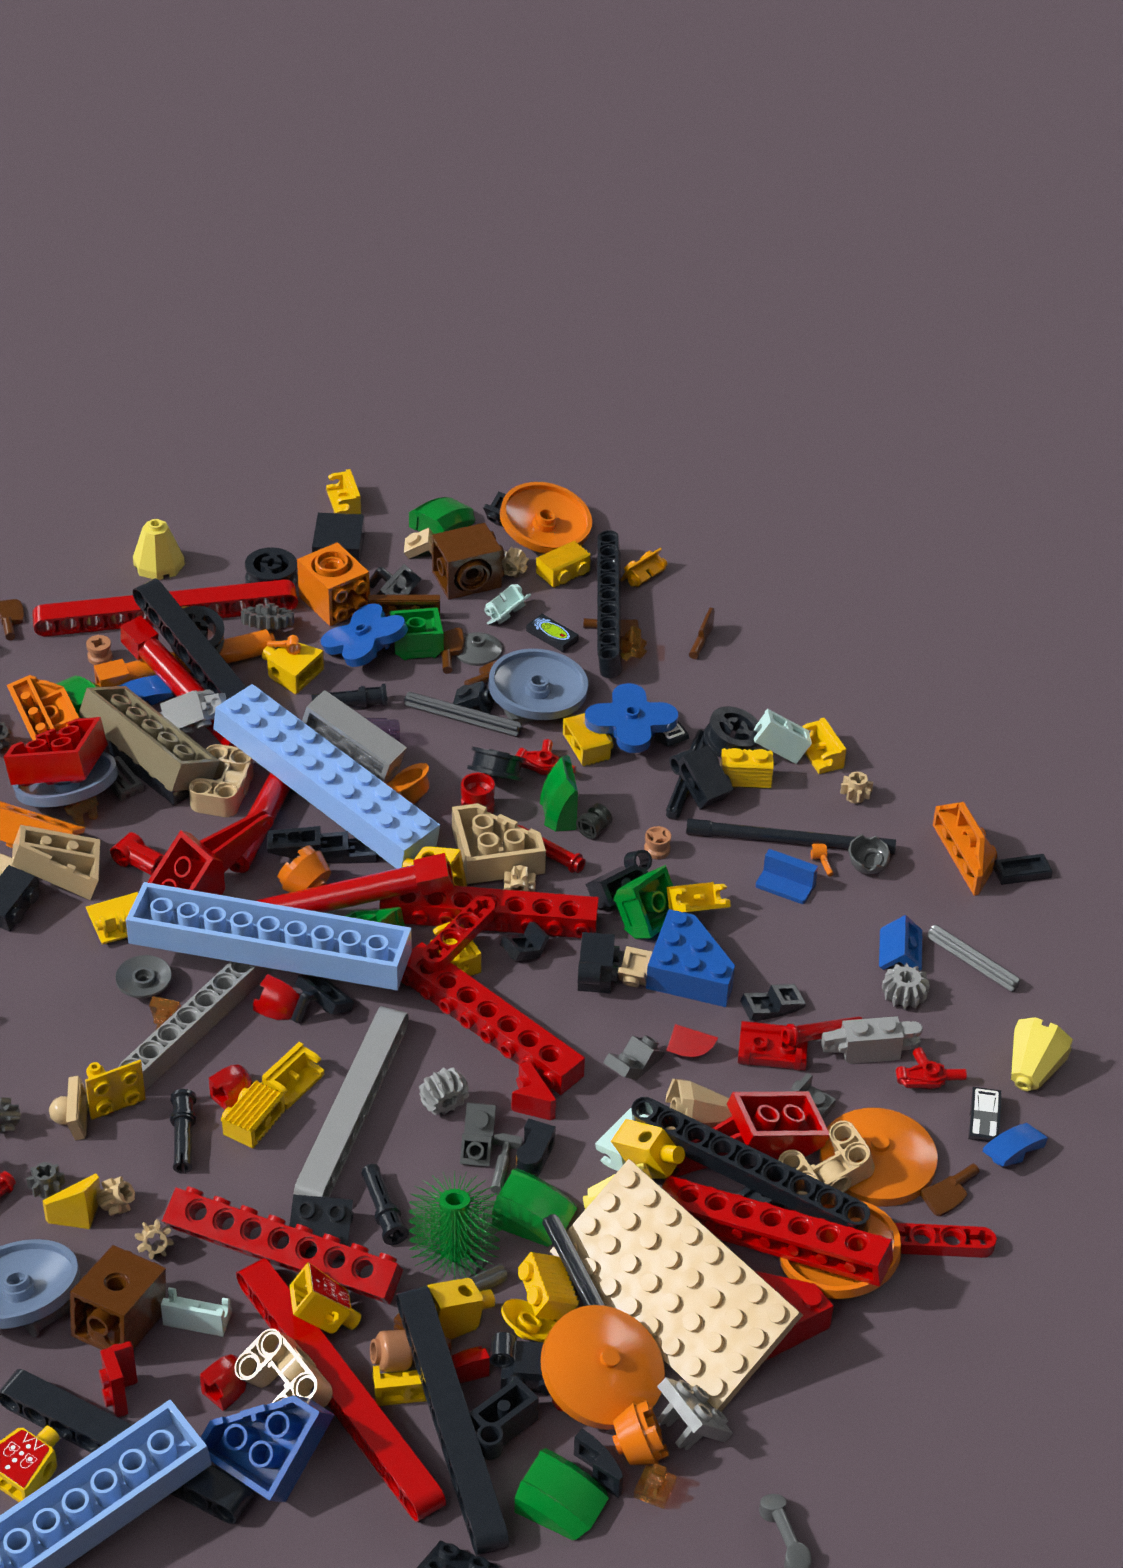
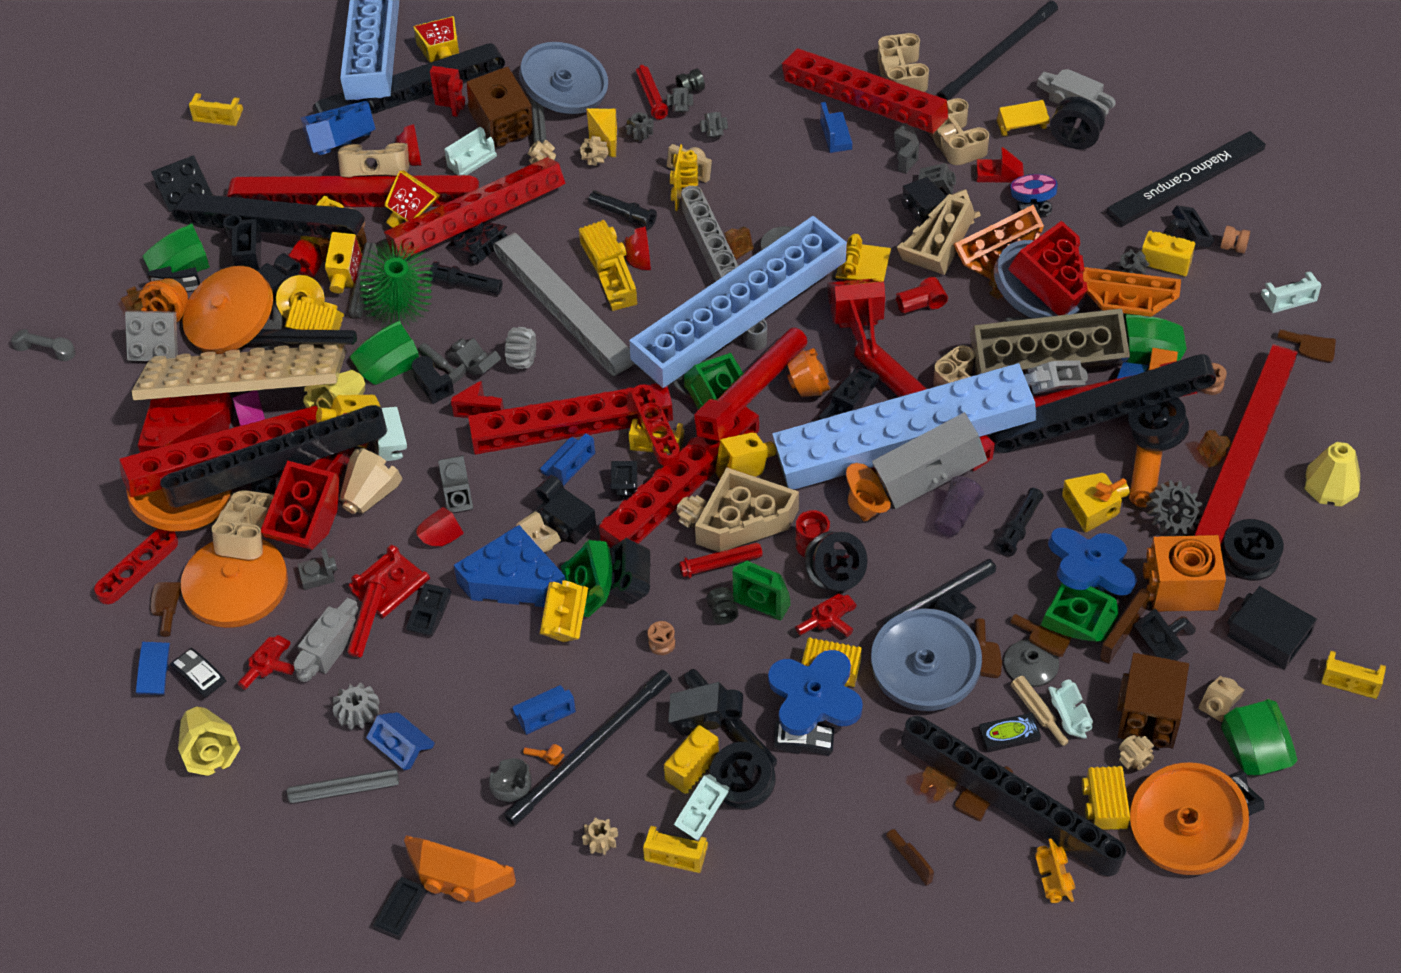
camera: 130 degrees right, 10 degrees up
(517, 626) = (1038, 707): none -> tan axle
(535, 995) = (569, 458): none -> blue panel

